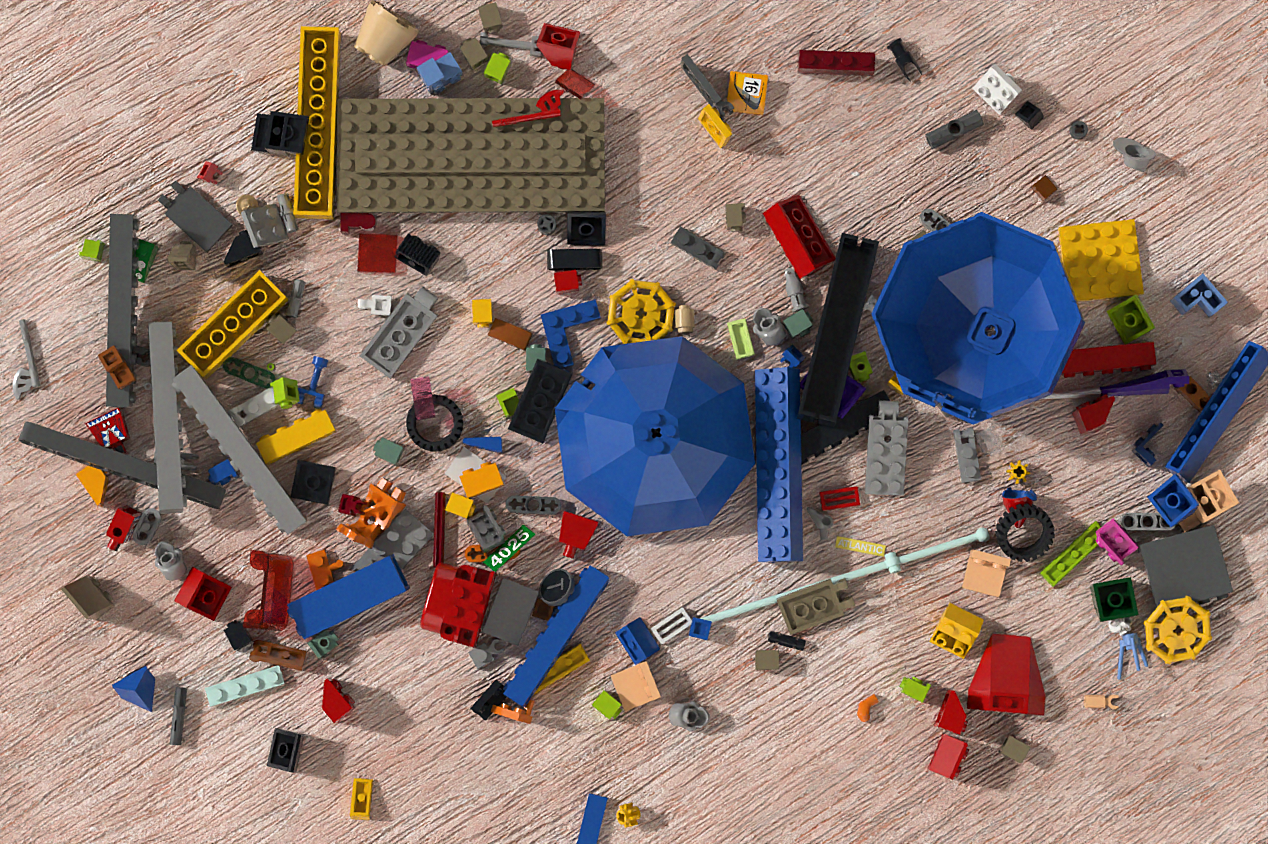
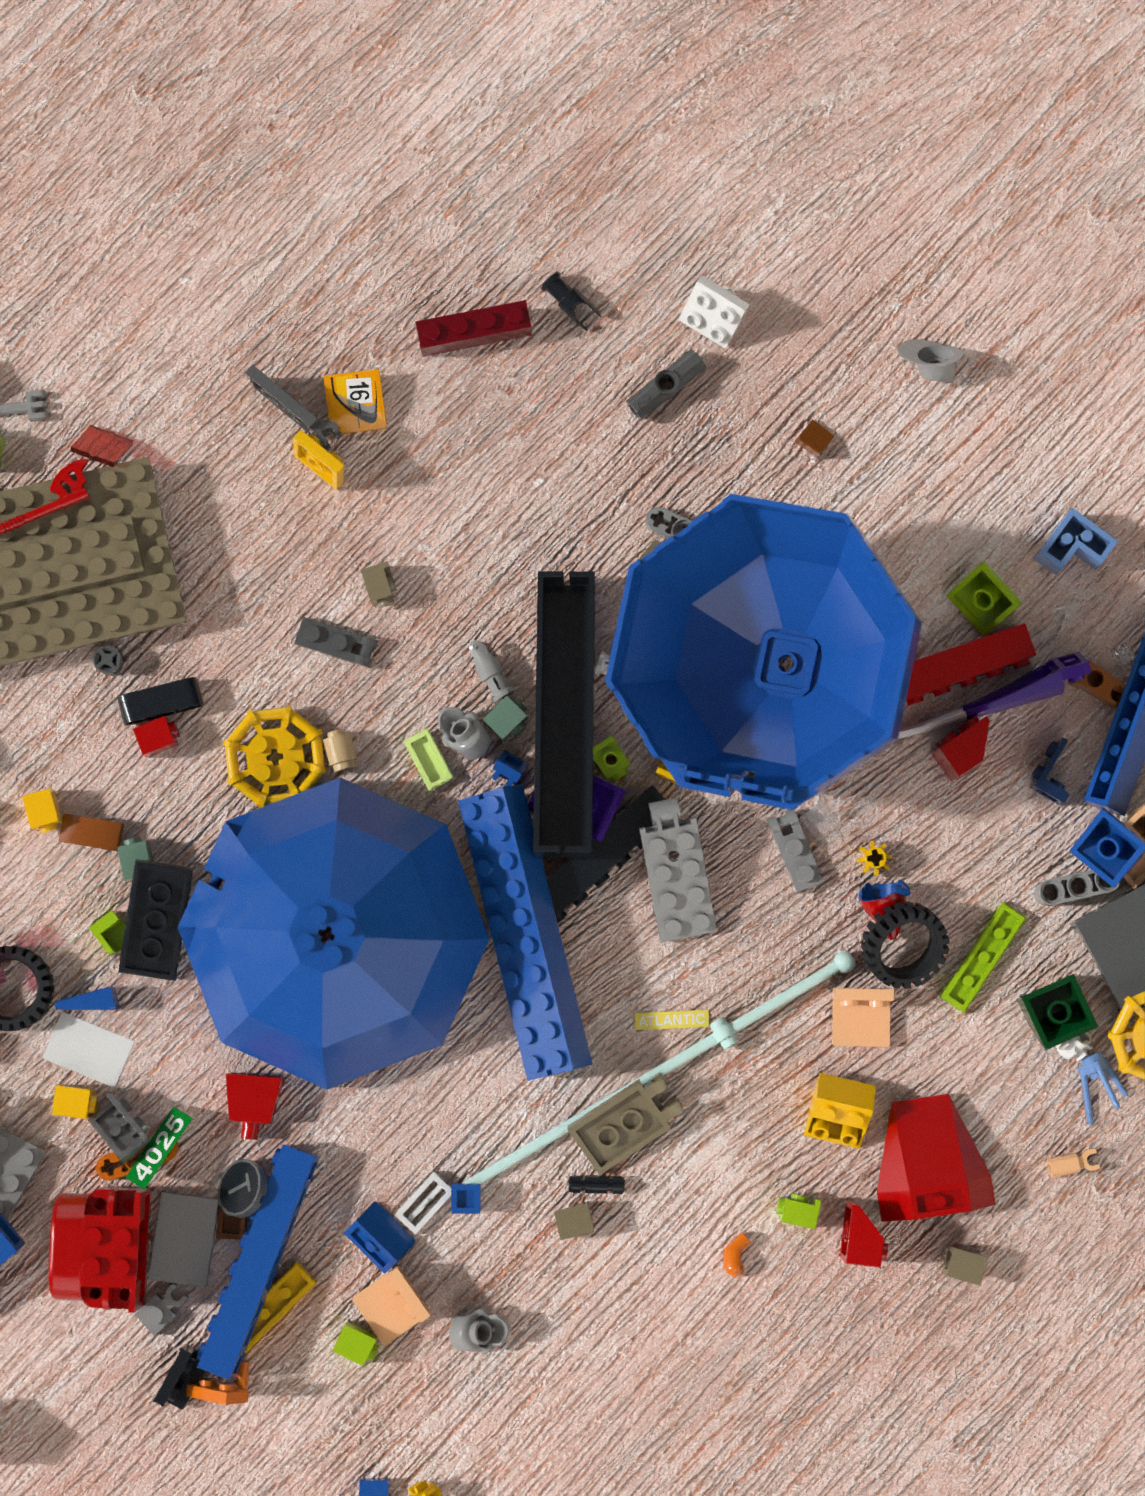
camera: 15 degrees left, 0 degrees up
(439, 528) = (51, 1141): dark red axle -> none
(481, 480) = (96, 1056): light orange brick -> none
(528, 498) = (162, 1085): dark grey beam -> none
(558, 45) = (66, 396): red slope -> none
(558, 320) = (154, 800): blue plate -> none
(586, 228) = (167, 651): black slope -> none
(799, 236) = (478, 590): red slope -> none
(821, 521) = (607, 998): light grey animal -> none
(855, 496) = (602, 967): red tile -> none
(948, 757) = (871, 1301): slope -> none
(1029, 115) = (769, 338): black slope -> none
(1078, 135) = (842, 335): dark grey bush -> none
(1102, 260) = (922, 522): yellow plate -> none
(1115, 541) = (1038, 925): dark pink bracket -> none

